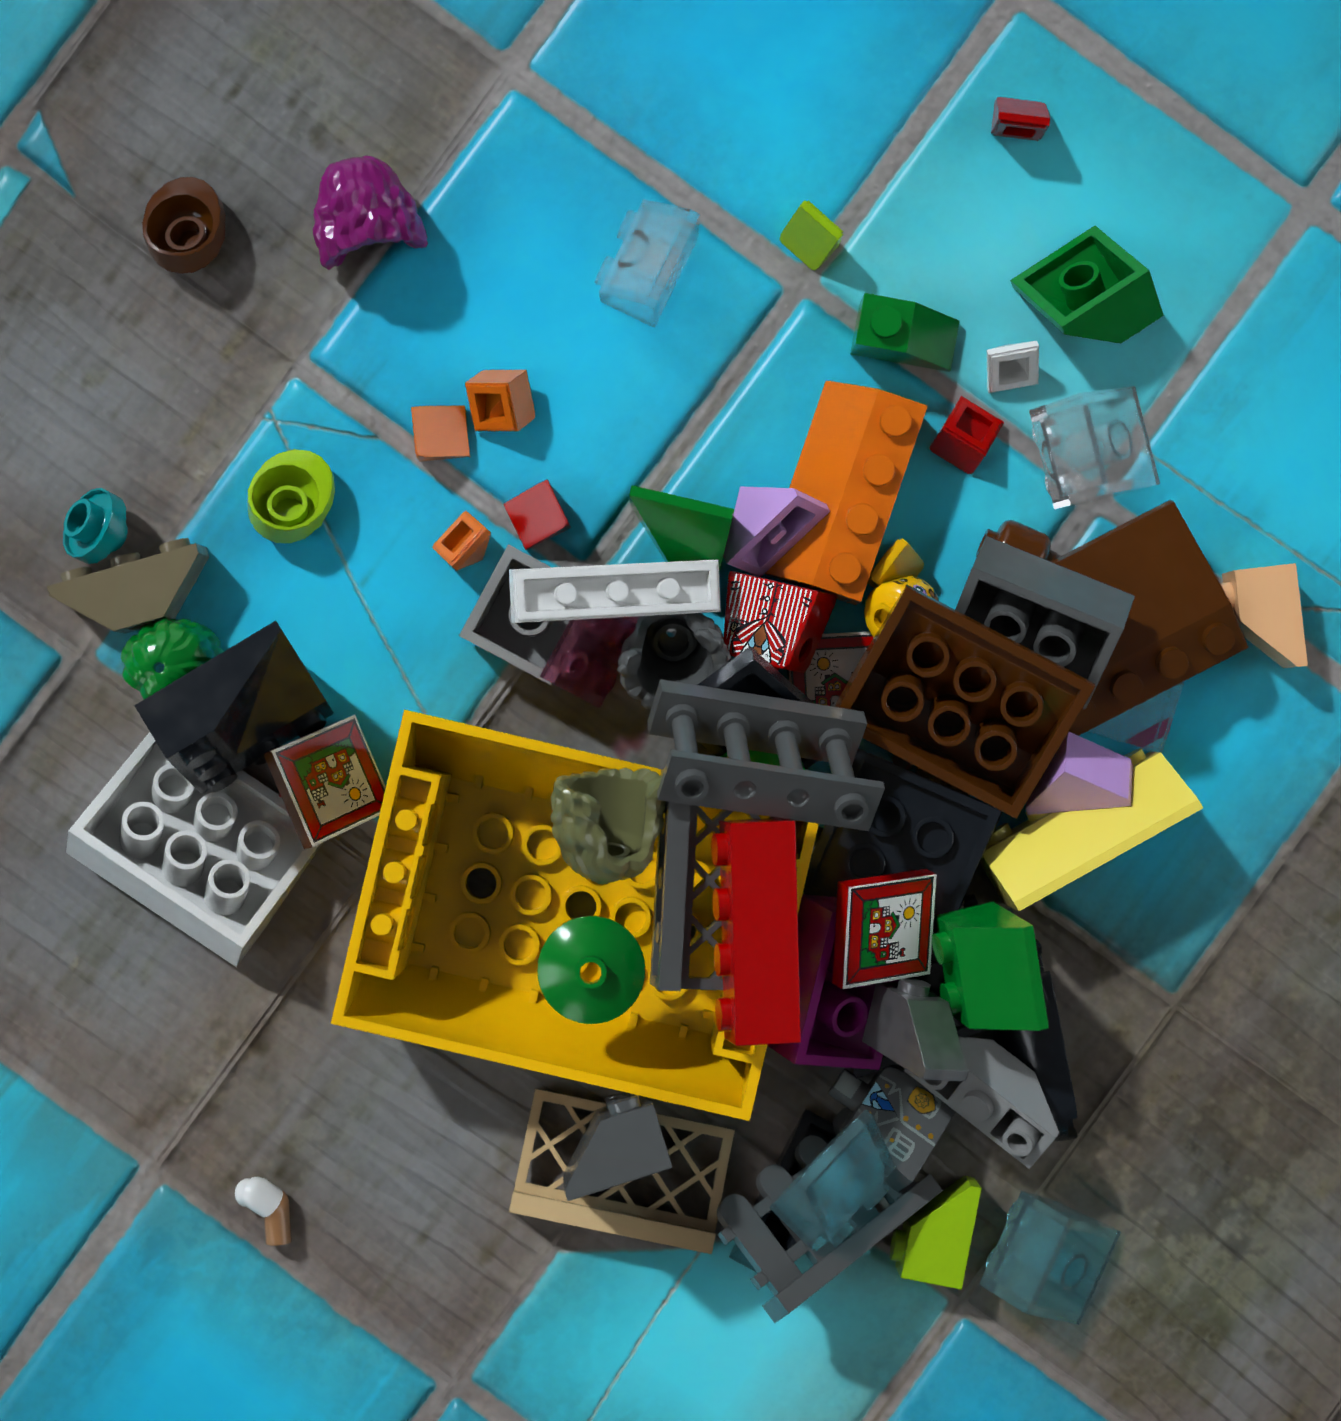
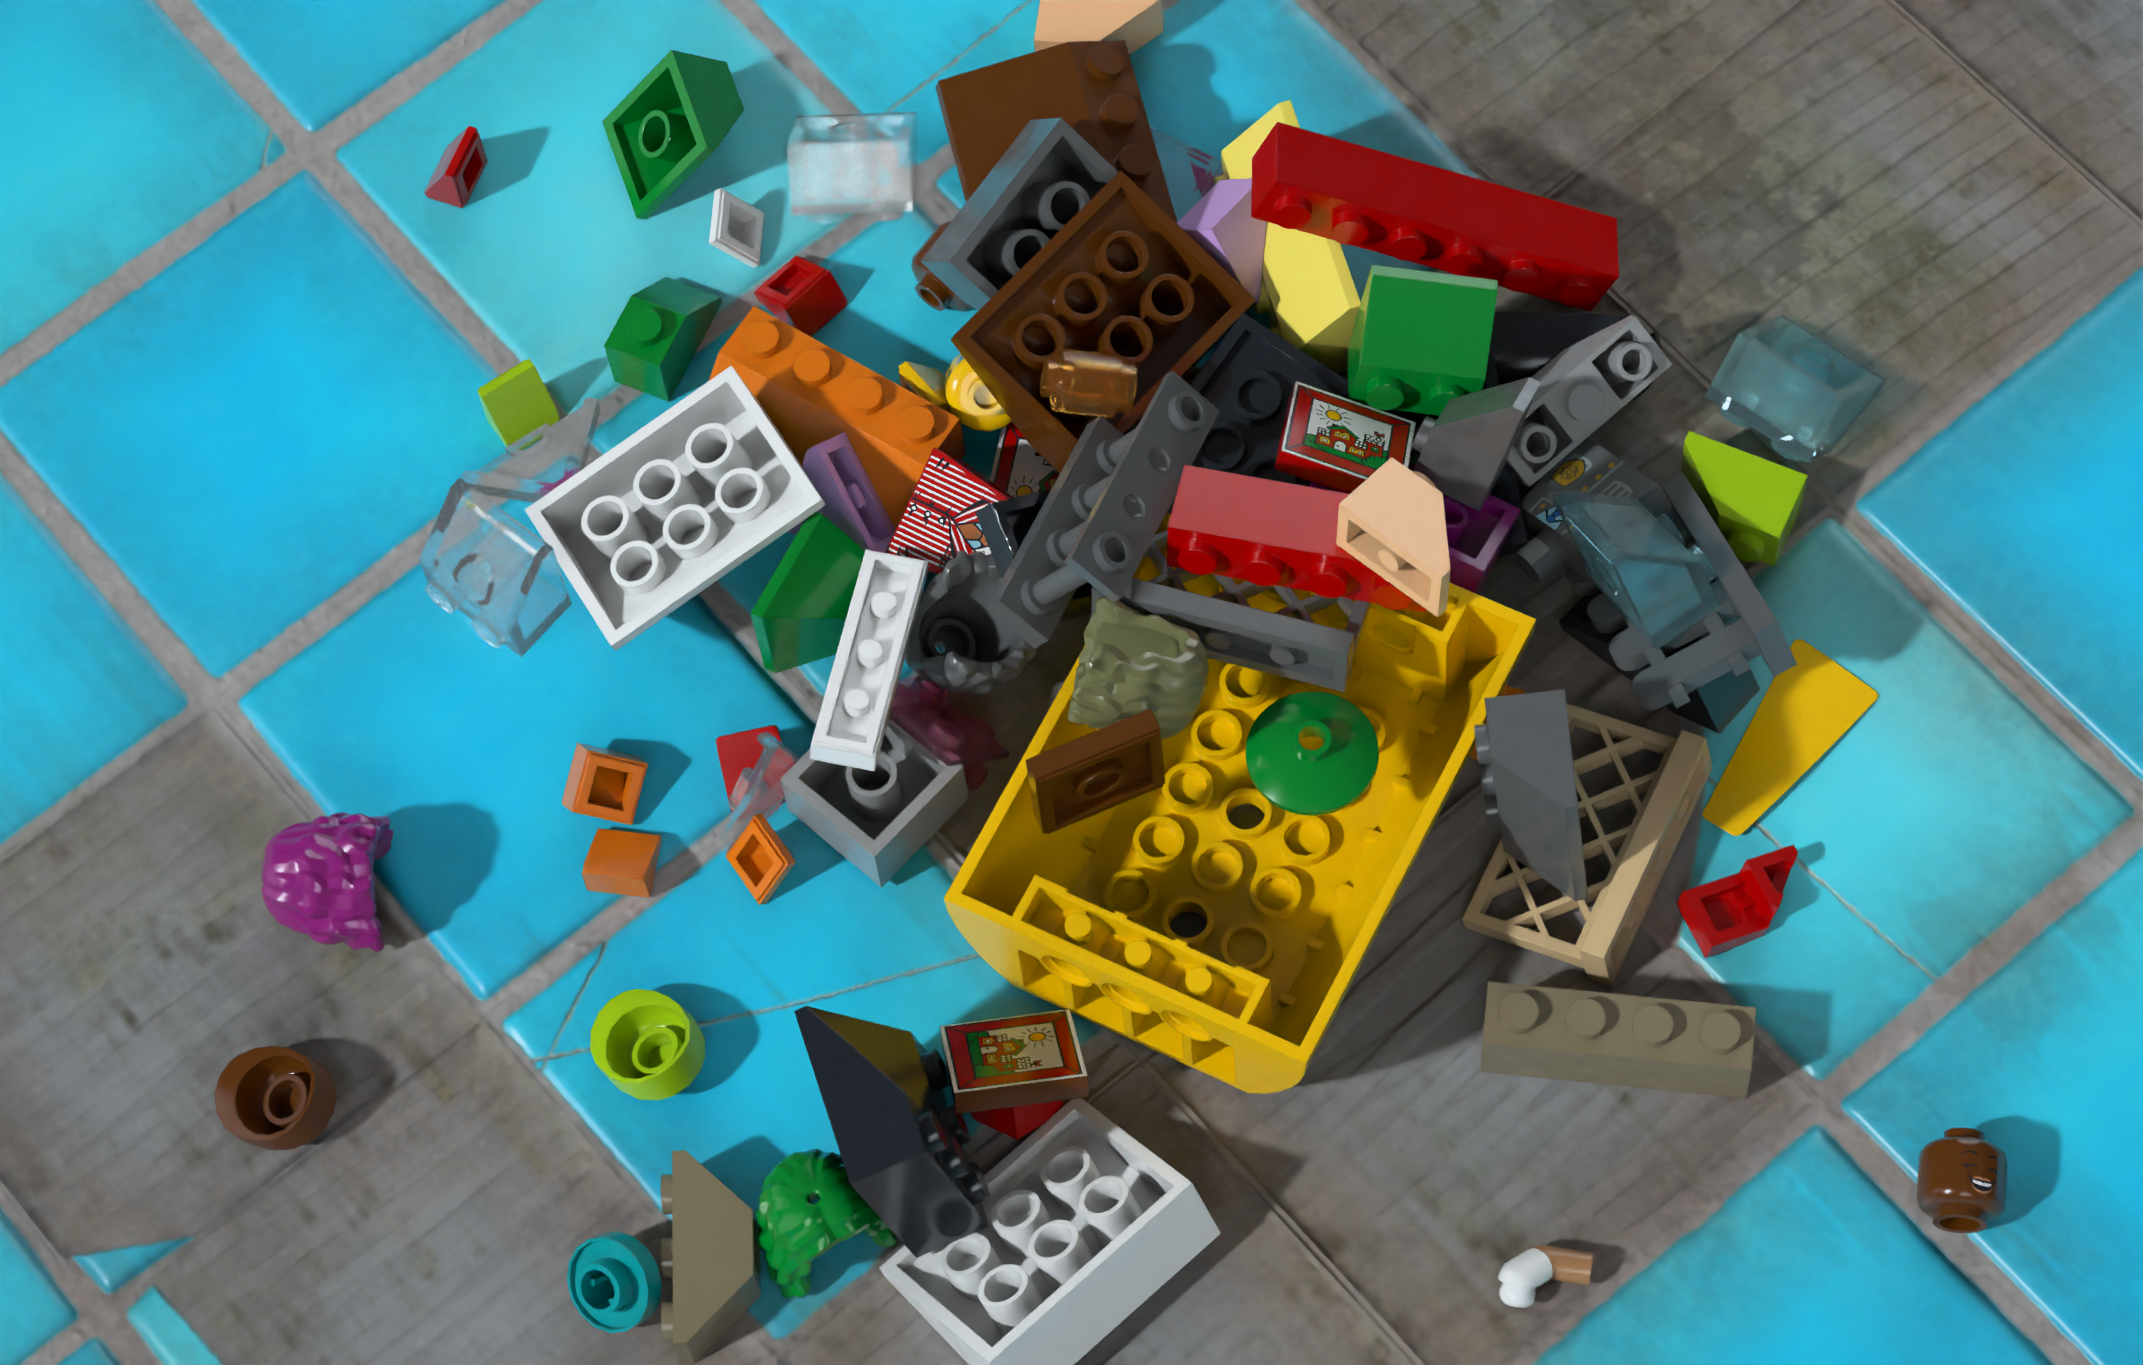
camera: 70 degrees left, 25 degrees down
(455, 1231) = (1618, 1039): none -> dark tan brick
(510, 528) = (756, 790): none -> clear tile
(510, 813) = (1096, 771): none -> reddish brown tile
(596, 1294) = (1739, 905): none -> red slope
(722, 398) = (675, 507): none -> white slope
(735, 1302) = (1790, 731): none -> yellow sticker
(755, 1024) = (1399, 532): none -> light nougat slope
(769, 270) = (540, 458): none -> clear tile
(891, 708) = (1088, 383): none -> clear orange brick
(1118, 947) = (1433, 217): none -> red brick

